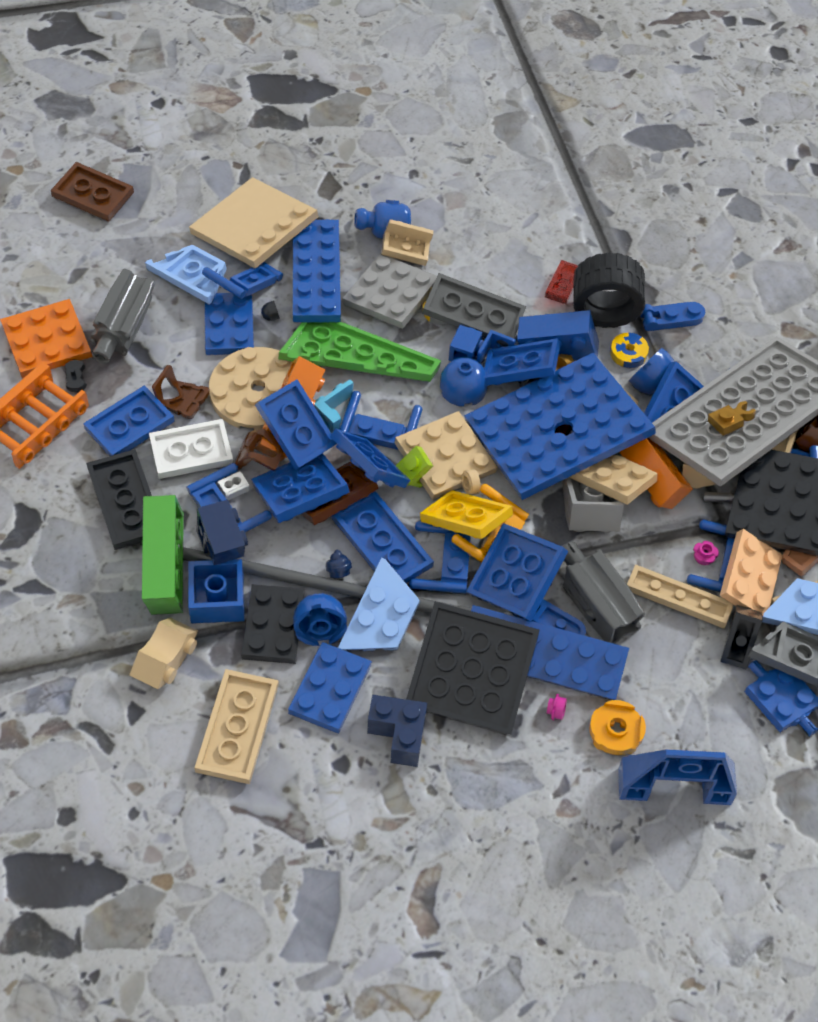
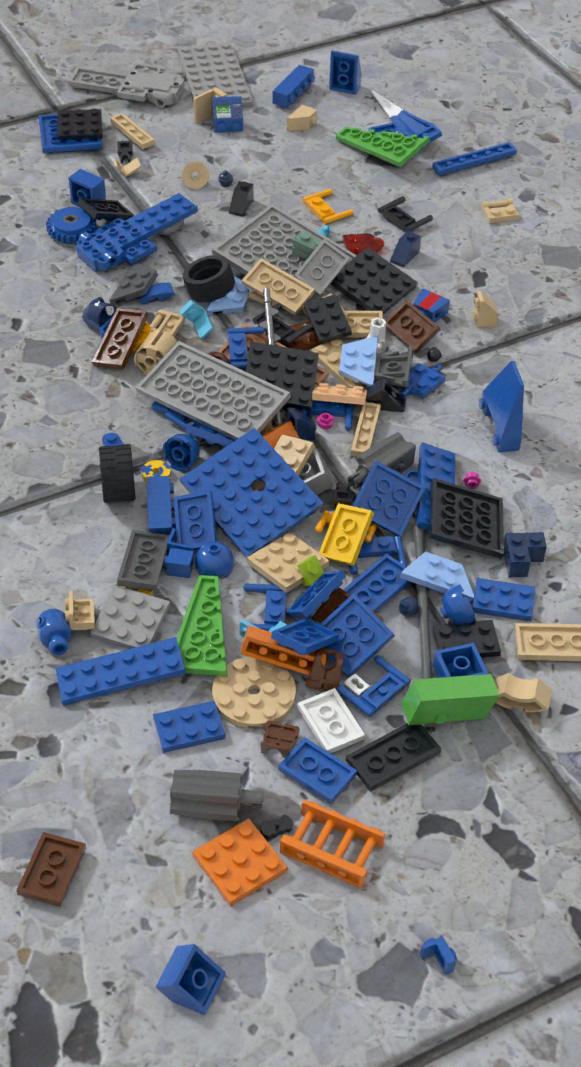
camera: 100 degrees left, 10 degrees down
(185, 271) = (140, 761): light blue wing -> none
(220, 532) = (422, 660): dark blue brick -> none
(246, 282) = (142, 710): blue plate -> none
(253, 222) = (72, 727): tan plate -> none
(270, 311) = (171, 696): black hinge -> none
(471, 482) = (314, 537): tan tile -> none
(552, 533) = (342, 495): none -> black plate
(561, 283) = (97, 514): clear red plate -> none
(612, 742) = (479, 458): light orange plate -> none
(685, 509) = (303, 425): none -> dark blue slope
(729, 419) = (231, 396): pearl gold plate -> none

